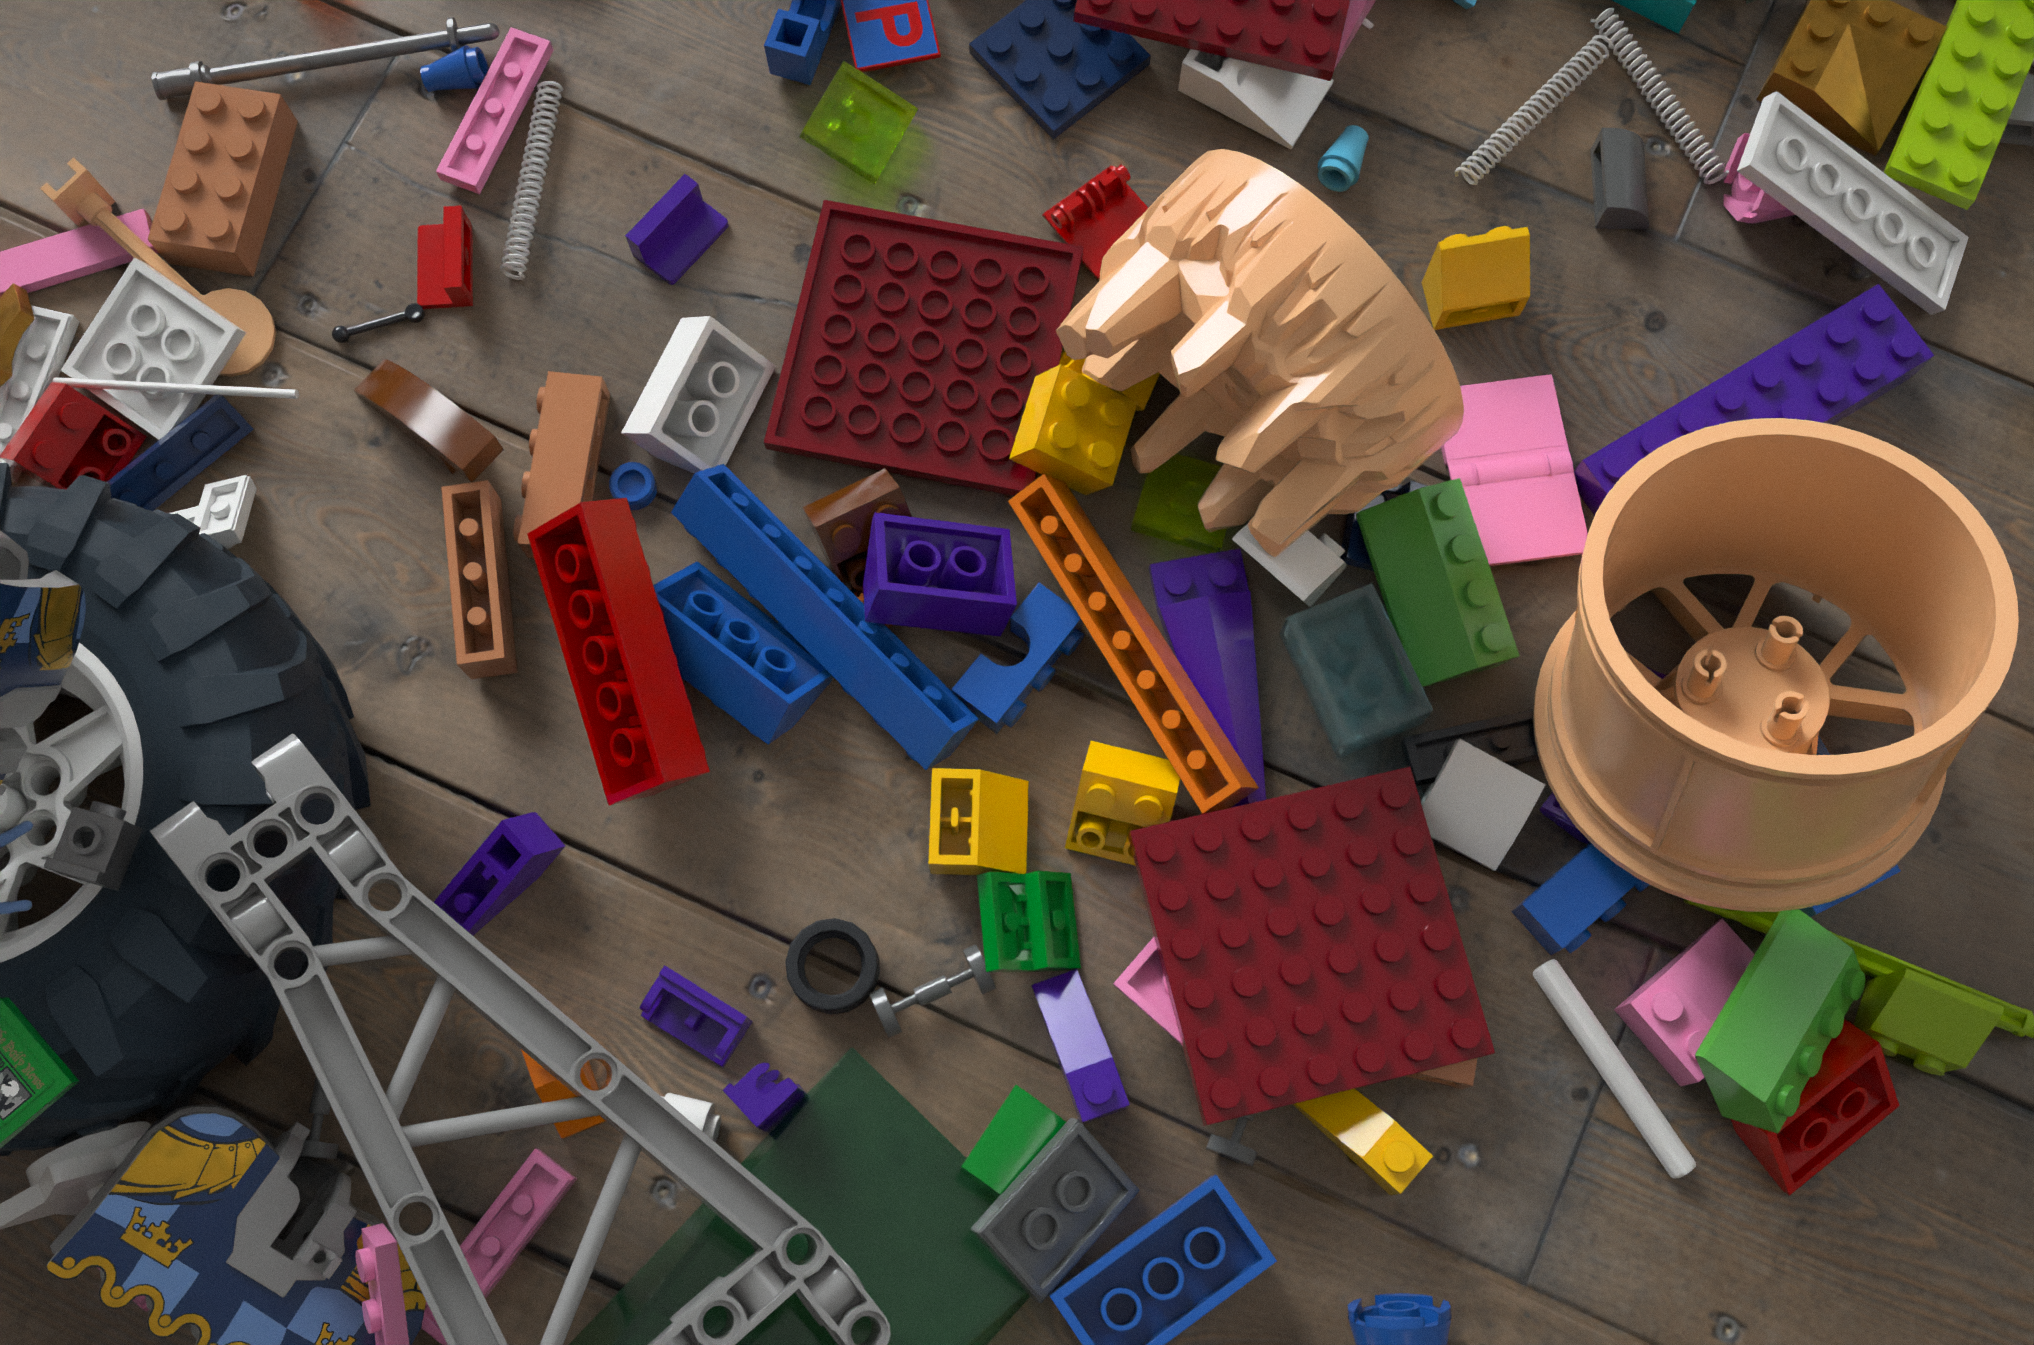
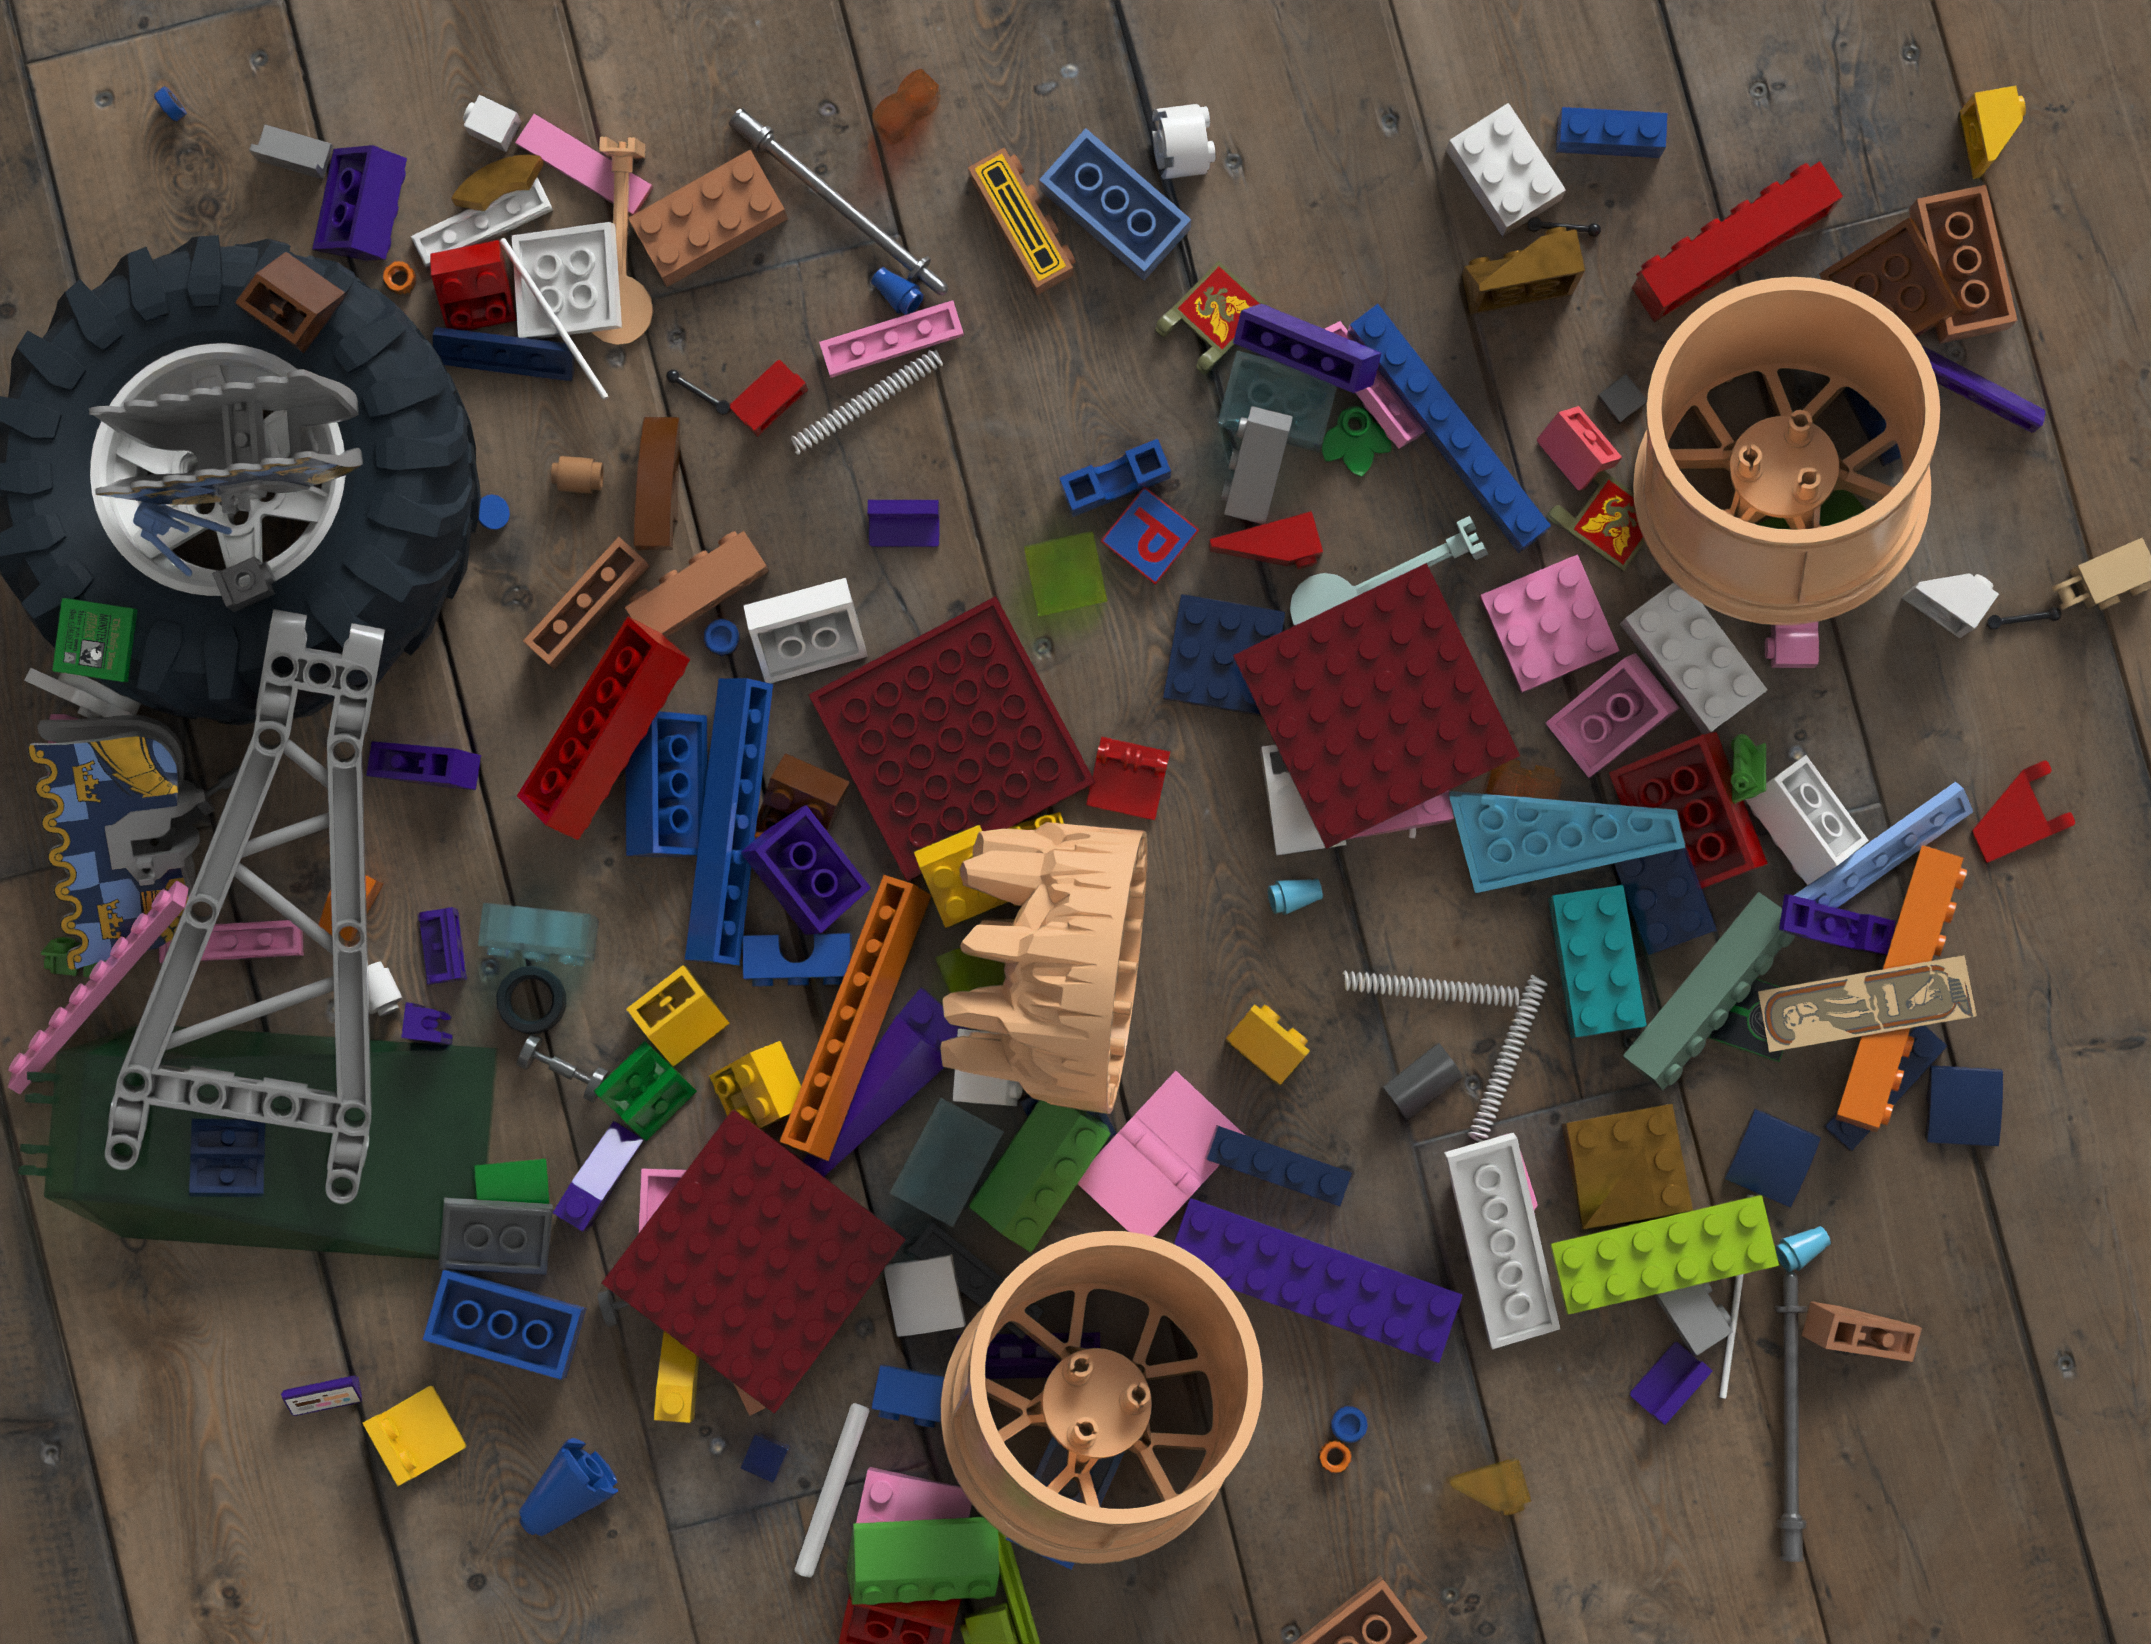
camera: 55 degrees right, 10 degrees up
(223, 510) = (499, 416): white hinge -> none
(308, 604) = (493, 512): none -> blue piece
(347, 491) = (577, 474): none -> medium nougat brick
(770, 895) = (538, 934): none -> clear light blue brick
(1528, 1107) = (765, 1457): none -> clear blue brick
(1604, 367) = (1278, 1165): none -> dark blue plate

